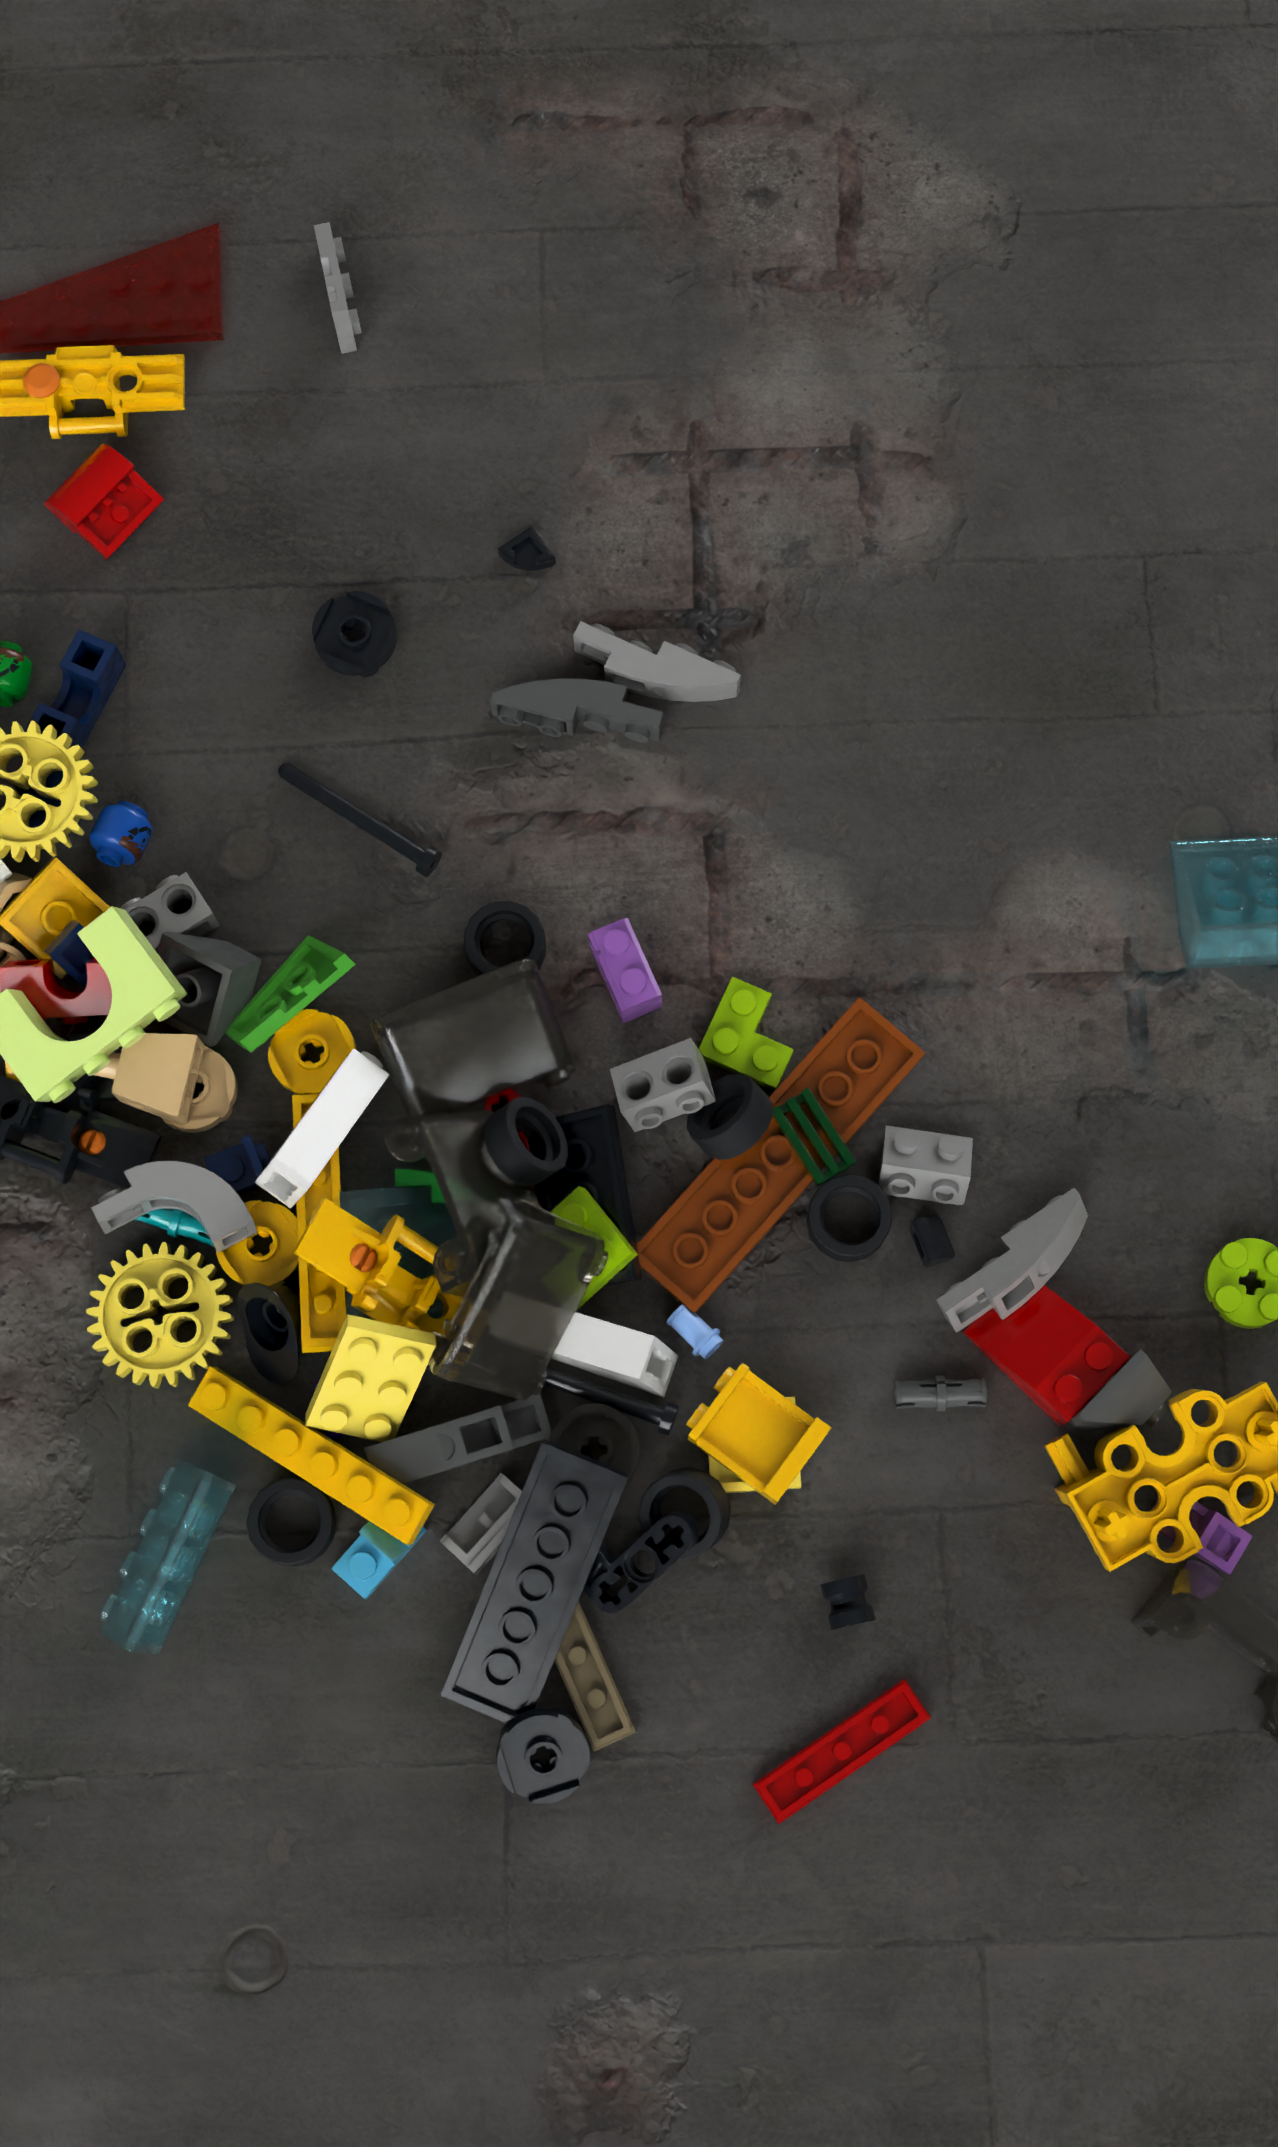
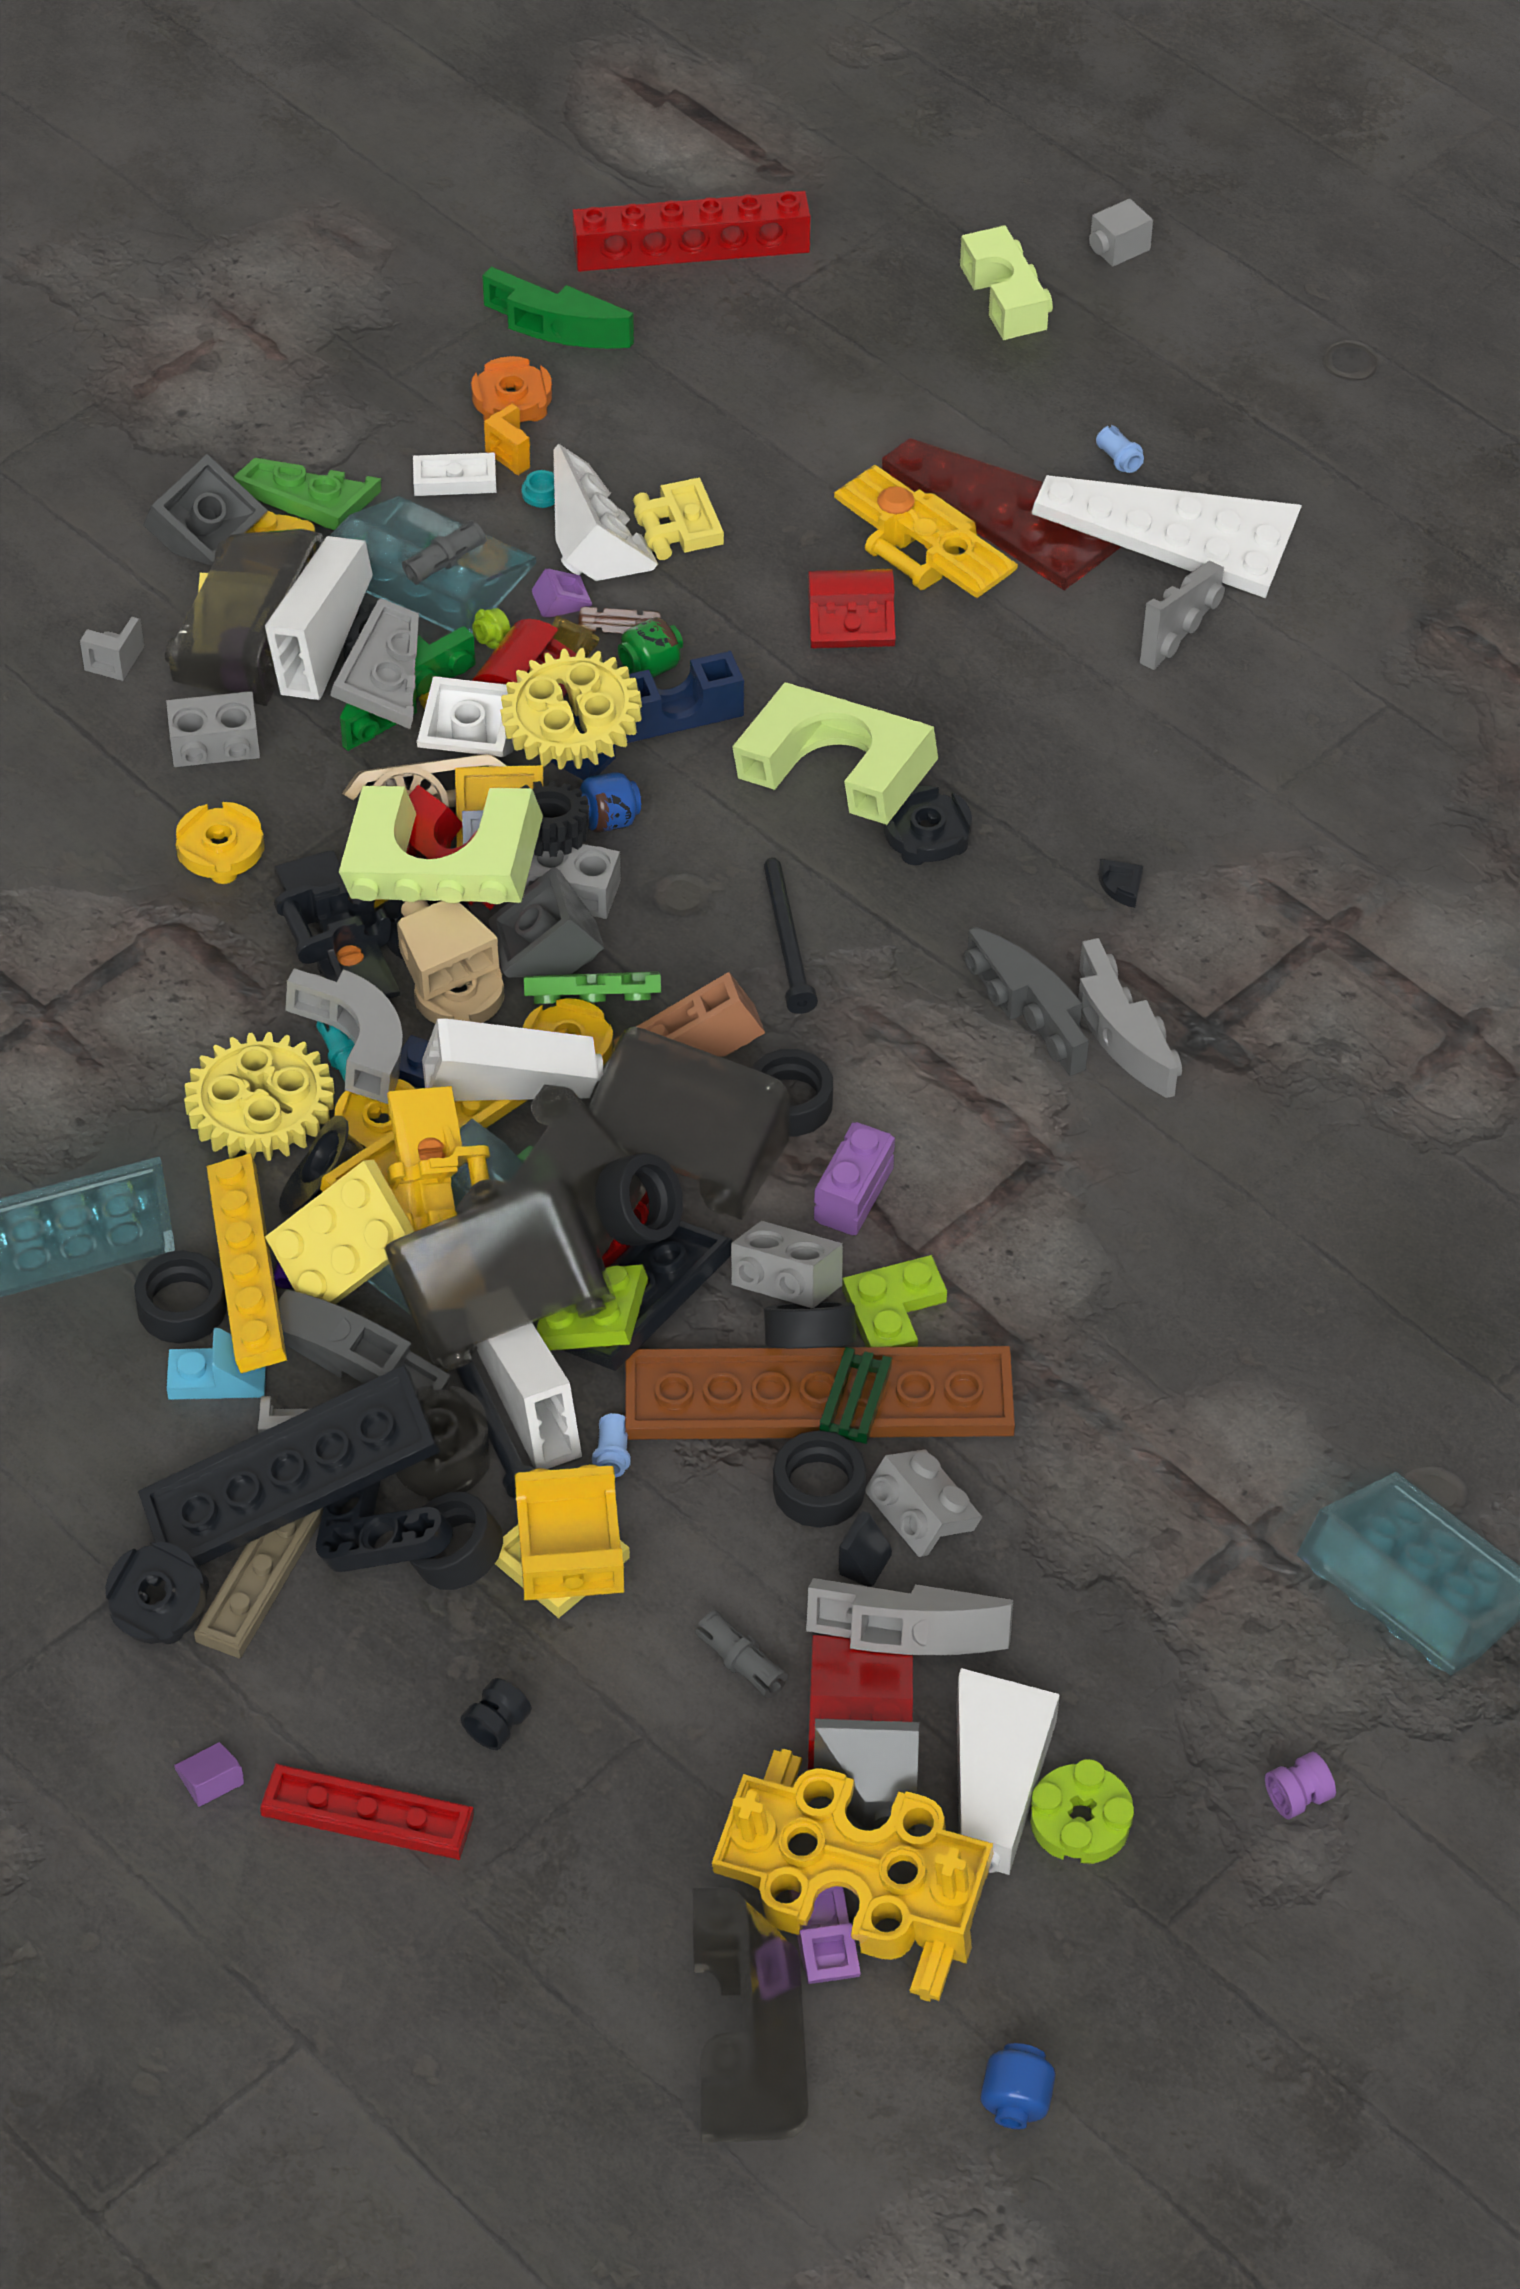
camera: 45 degrees right, 25 degrees down
(109, 876) = (564, 818): none -> black tyre
(135, 179) = (1126, 455): none -> light blue pin
(180, 631) = (805, 720): none -> yellowish green arch
(252, 212) = (1177, 526): none -> white wing
(389, 961) = (710, 1019): none -> nougat slope
(716, 1834) = (210, 1773): none -> medium lavender slope
(1176, 1305) = (999, 1758): none -> white slope

